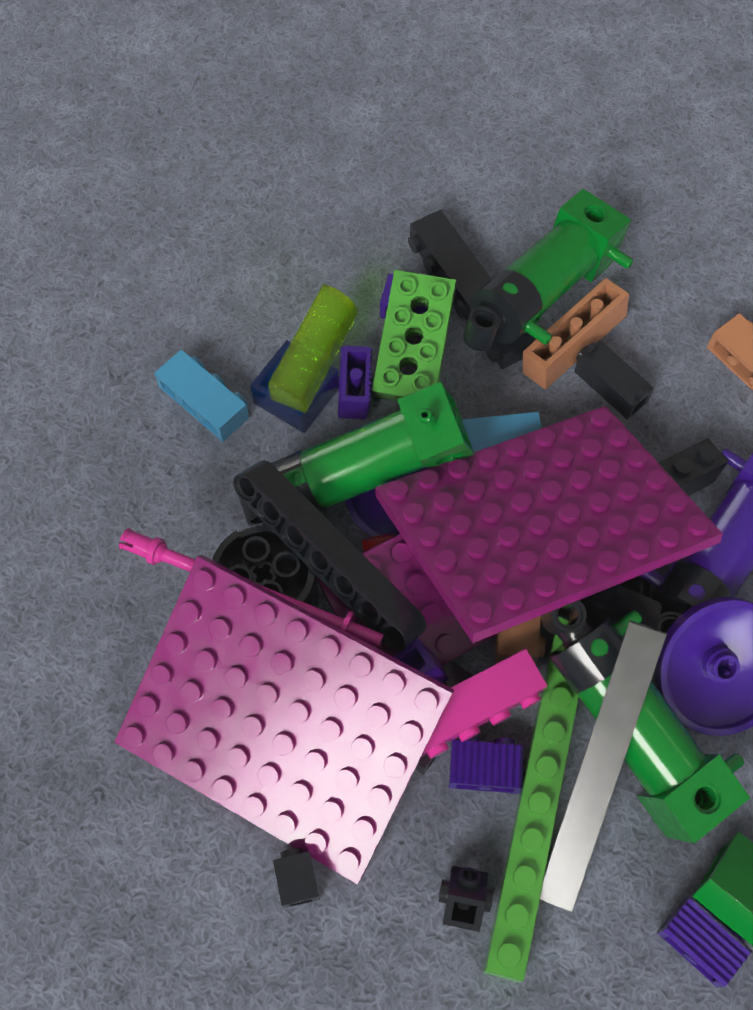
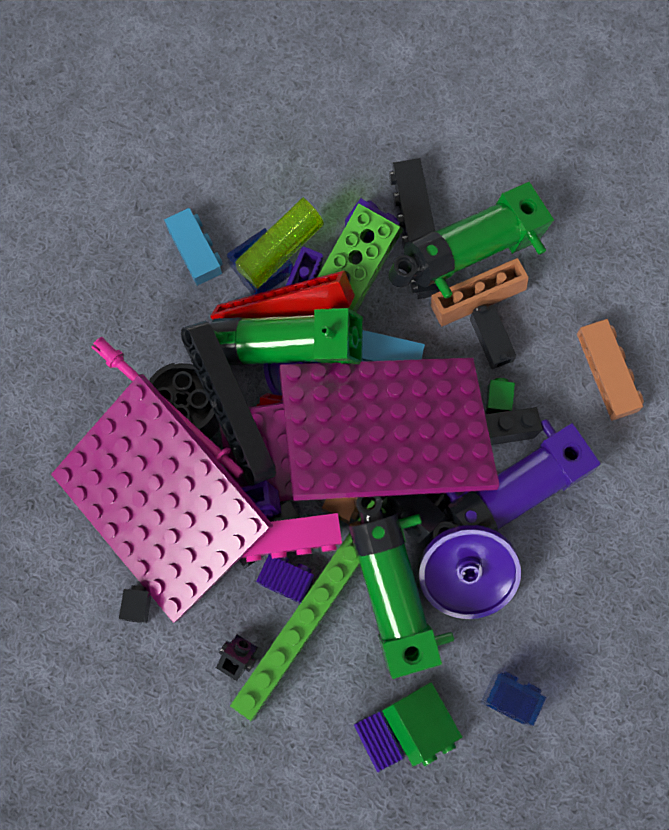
camera: 20 degrees right, 10 degrees up
(362, 405) = (298, 299): none -> red slope
(601, 764) = (353, 606): tile -> none
(656, 439) = (500, 396): none -> green brick

